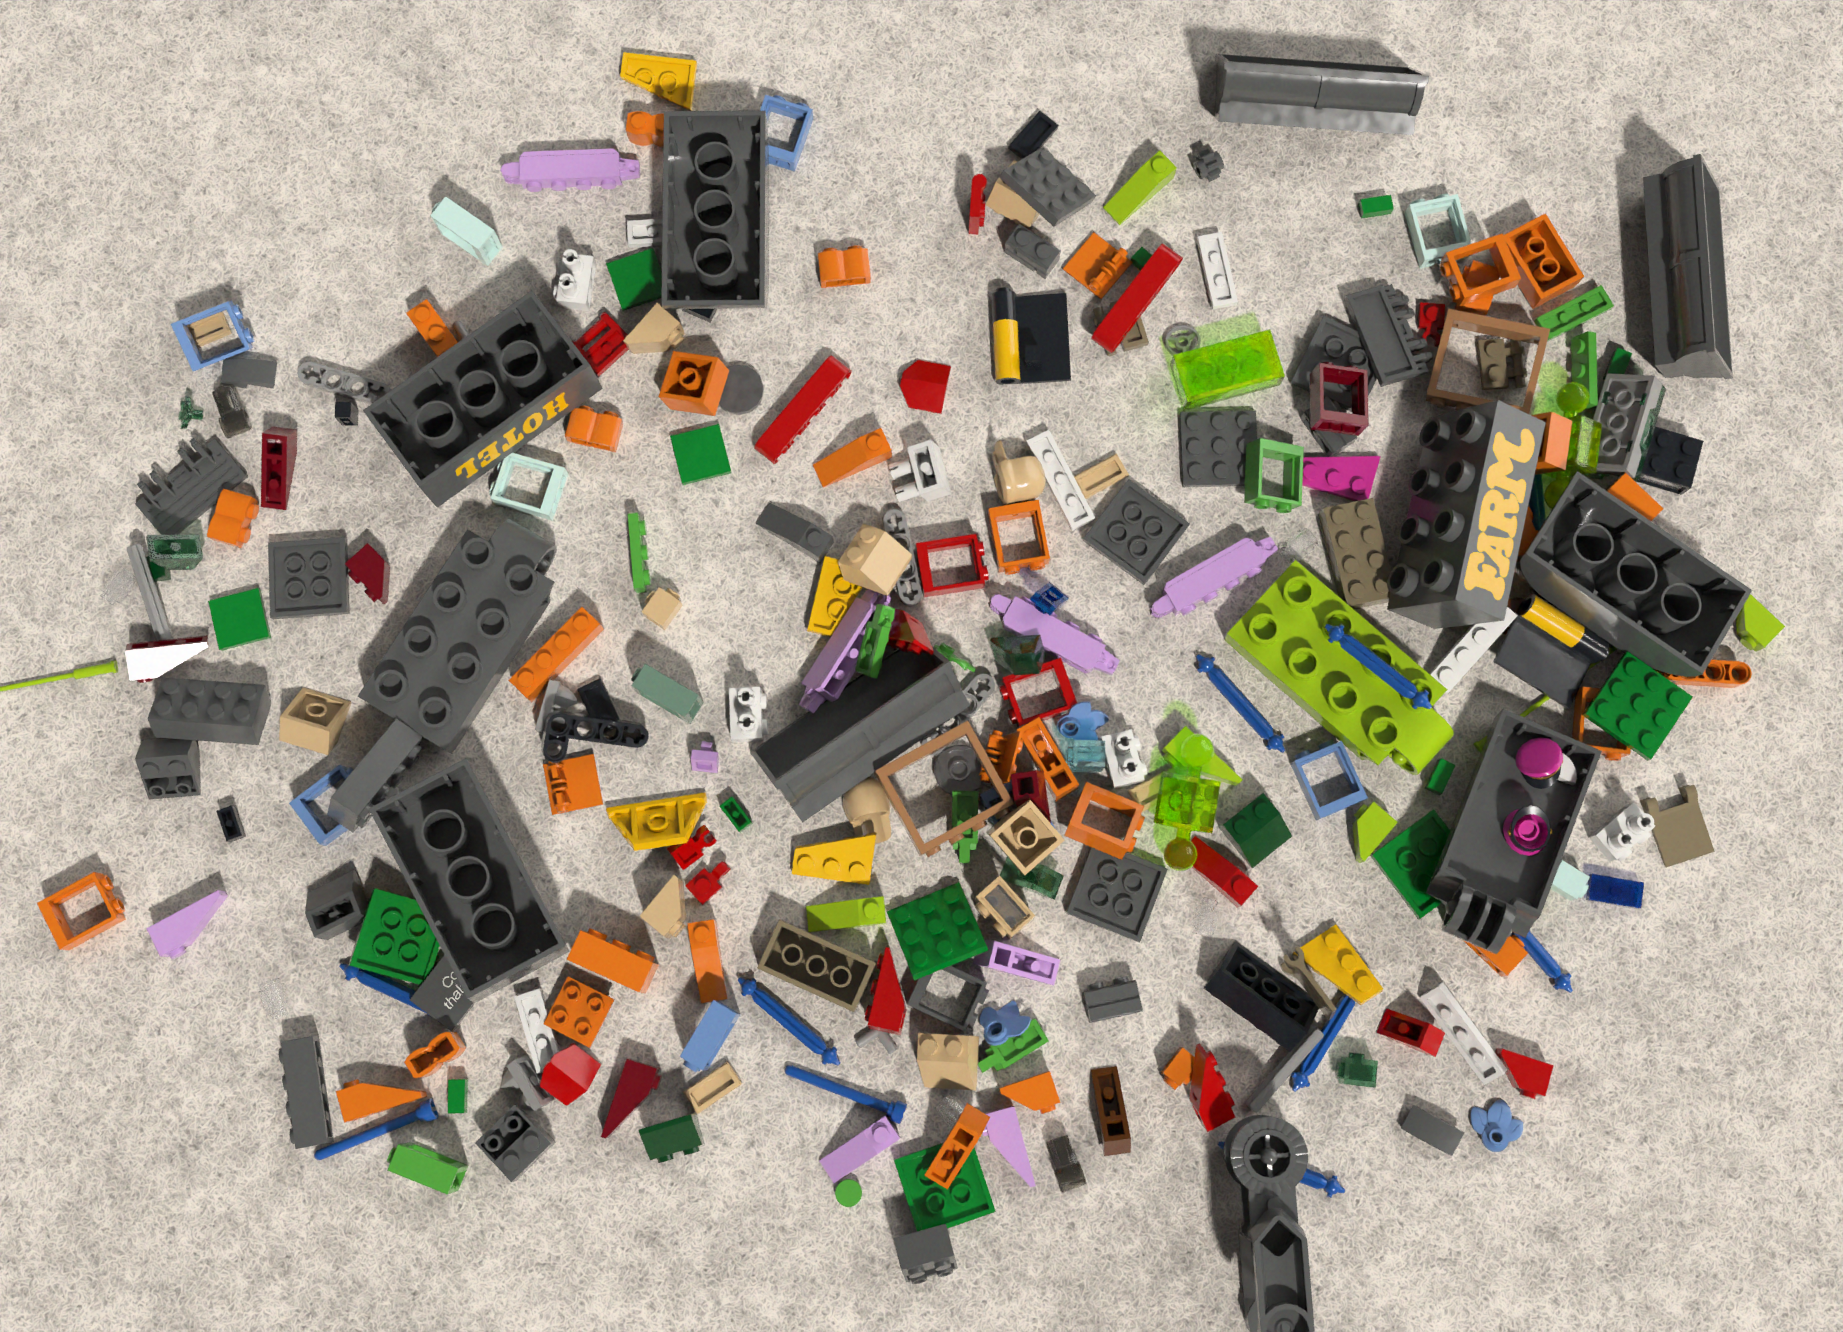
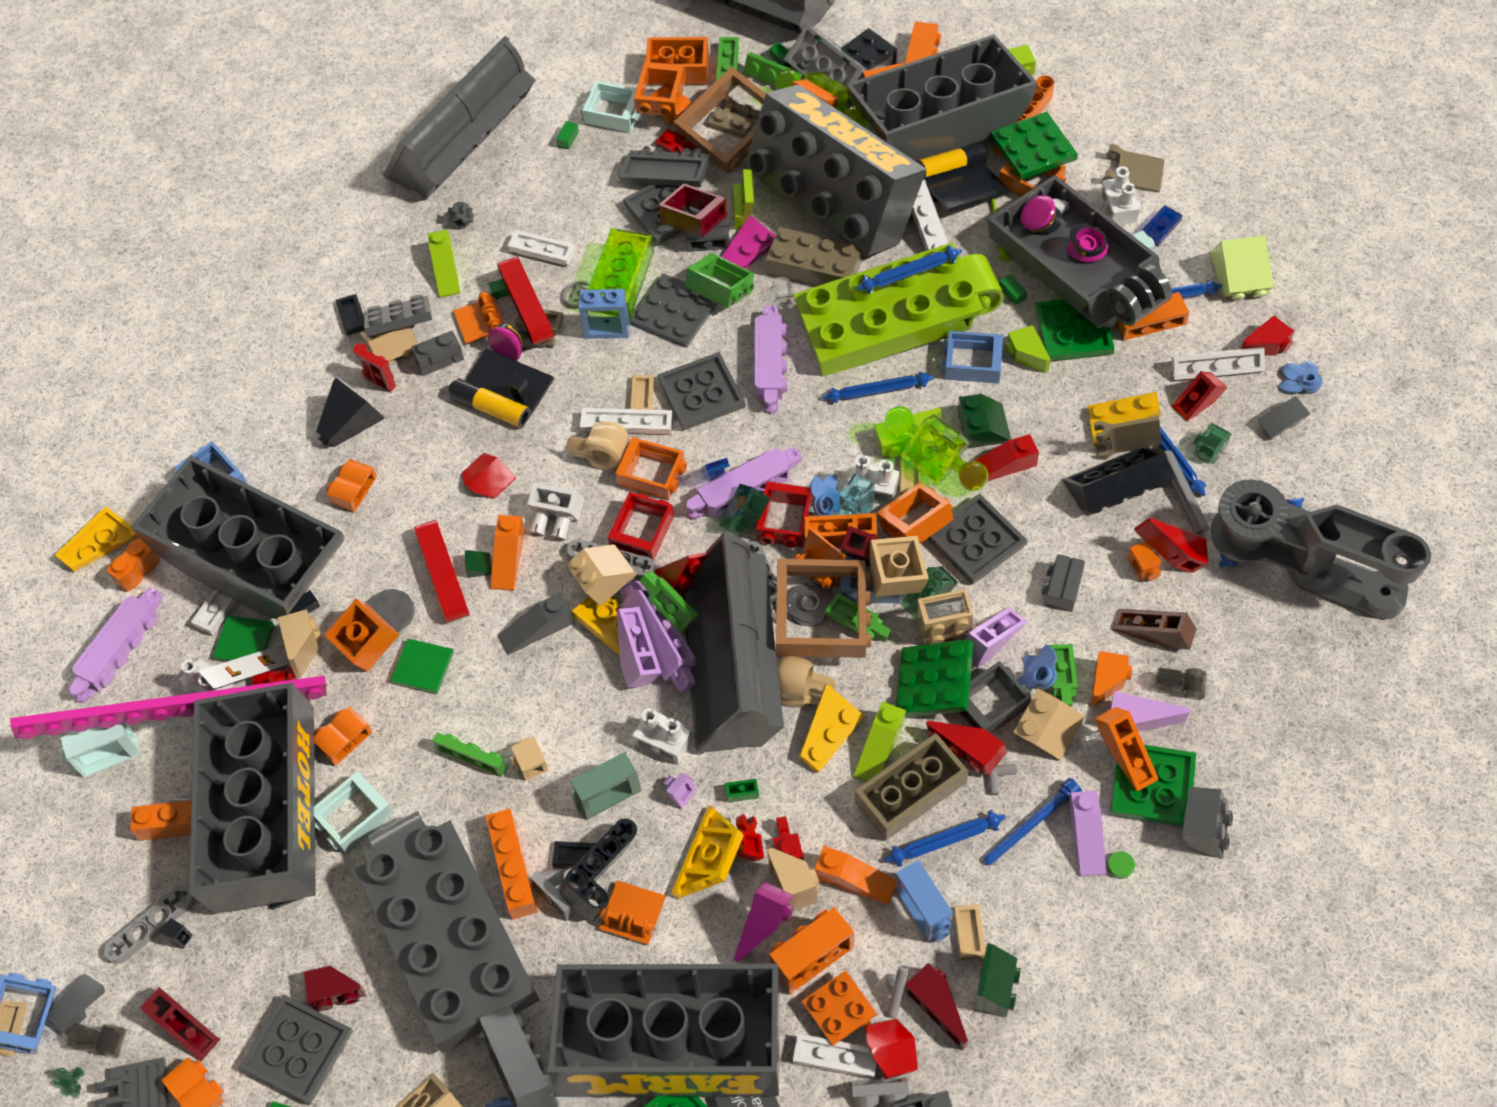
camera: 55 degrees left, 20 degrees down
(515, 263) = (137, 711): none -> dark pink plate
(601, 301) = (244, 667): none -> white sticker
(613, 907) = (766, 914): none -> magenta slope
(628, 1050) = (897, 985): none -> light grey piece
(815, 639) = (635, 649): none -> lavender slope
(829, 437) = (477, 563): none -> dark green slope
(914, 211) = (345, 415): none -> black slope
(1082, 311) = (508, 340): none -> dark pink piece
(1164, 393) = (604, 326): none -> medium blue window
(1388, 439) = (742, 199): none -> lime slope
(1603, 1005) = (1243, 267): none -> yellowish green slope
(1712, 514) = (923, 41): none -> orange brick

